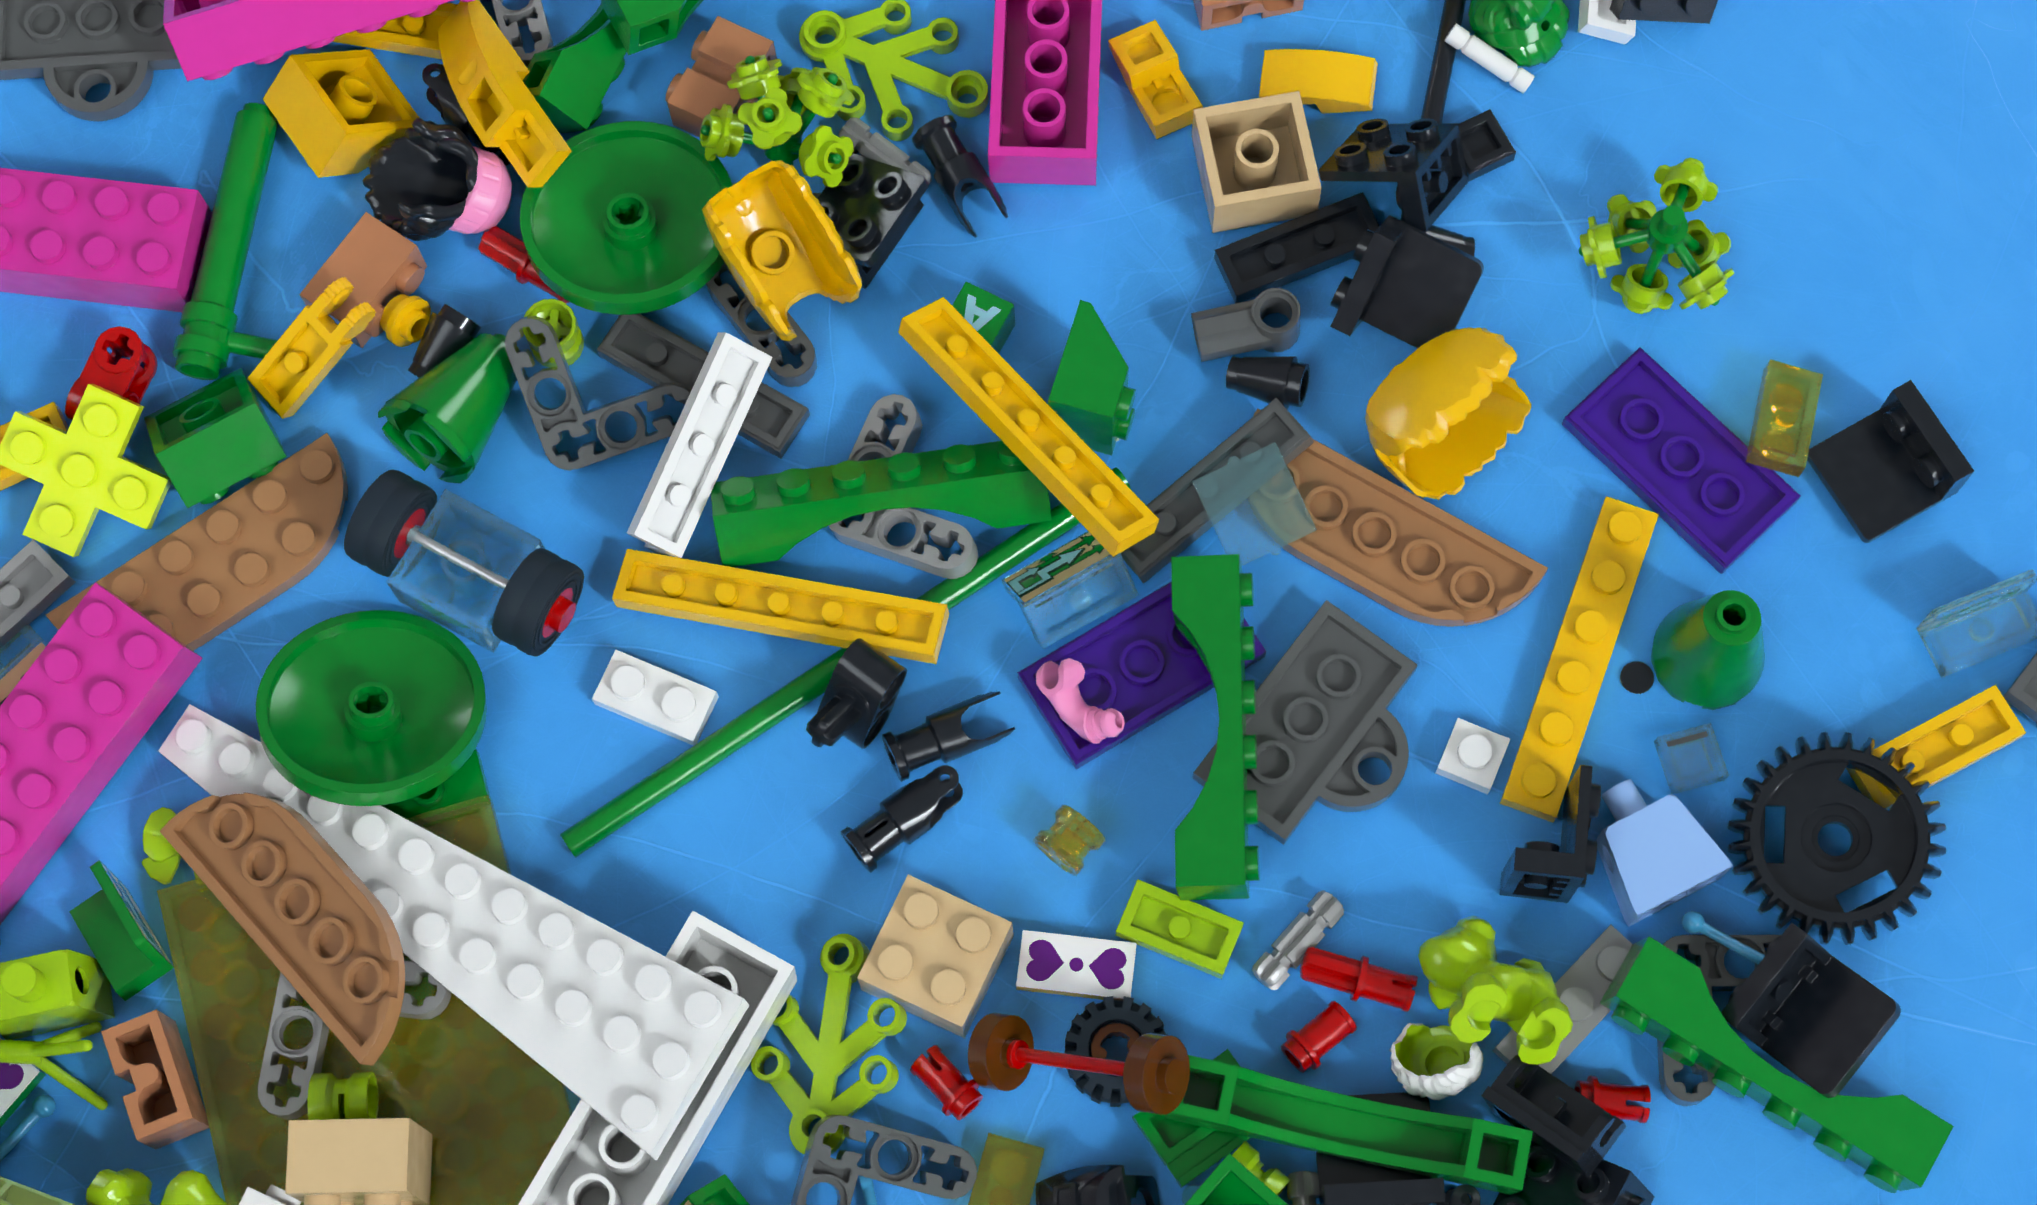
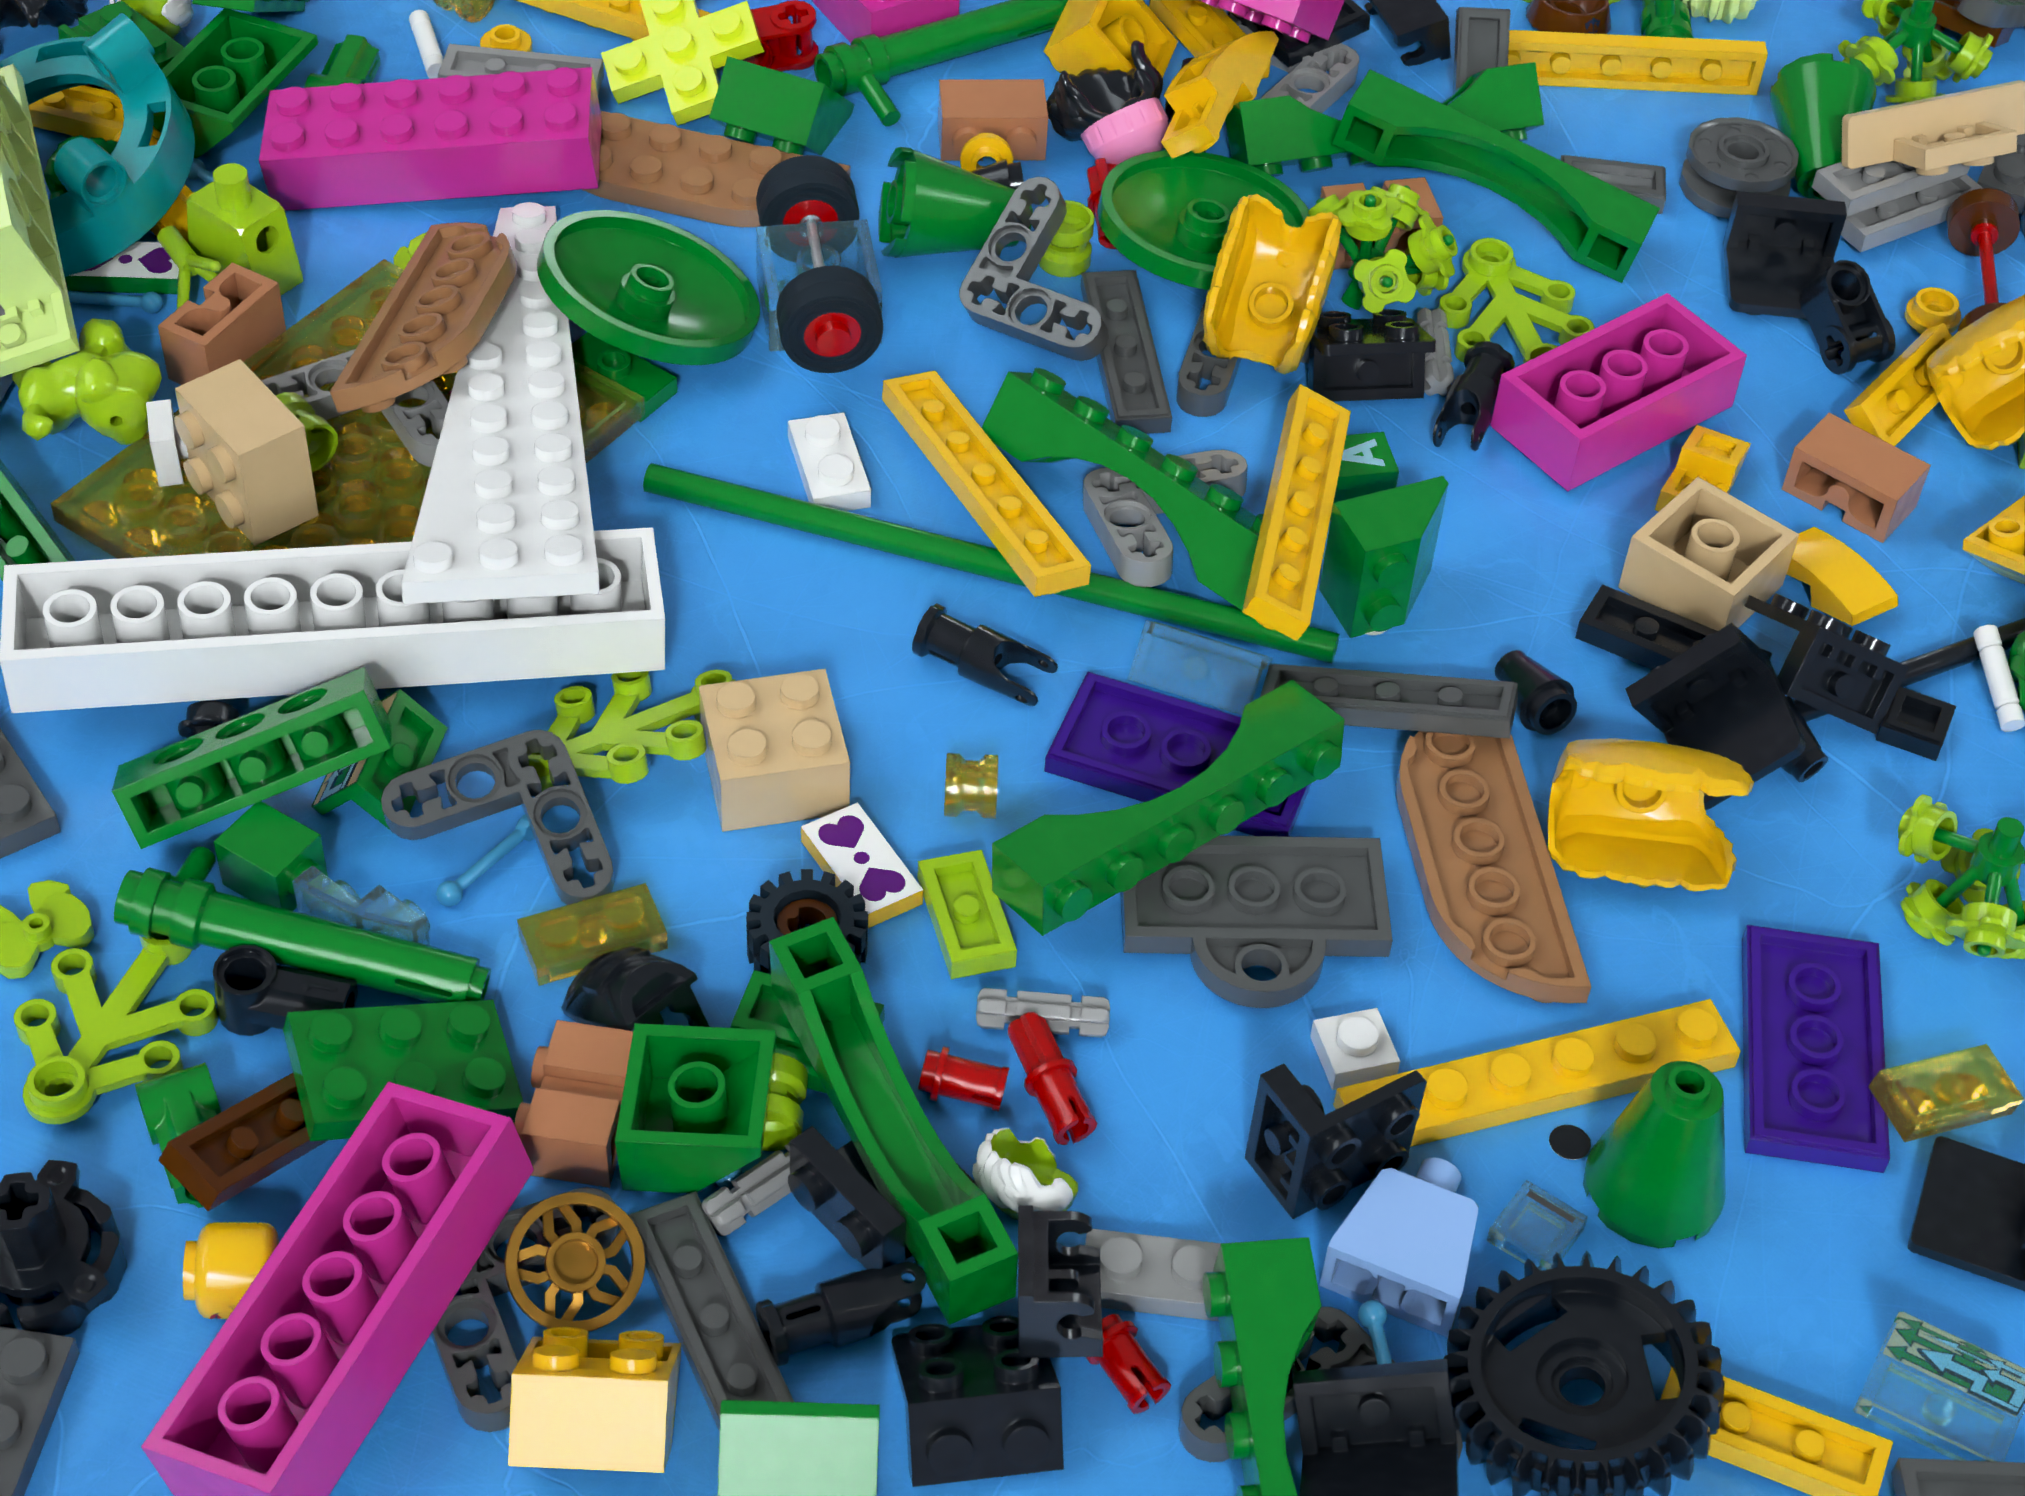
camera: 45 degrees right, 25 degrees down
(120, 936) = (332, 255): green panel -> none
(309, 349) = (905, 106): yellow hinge -> none
(699, 445) = (1063, 340): white fence -> none
(857, 697) = (955, 561): black beam -> none
(904, 816) = (882, 665): black piece -> none
(947, 1083) = (662, 841): red pin -> none
(1062, 690) = (1101, 695): bright pink piece -> none
(1152, 1074) = (785, 882): reddish brown axle -> none
(1240, 326) = (1580, 652): dark grey piece -> none
(1254, 504) = (1406, 726): clear light blue piece -> none
(1479, 989) = (1137, 1147): lime animal -> none

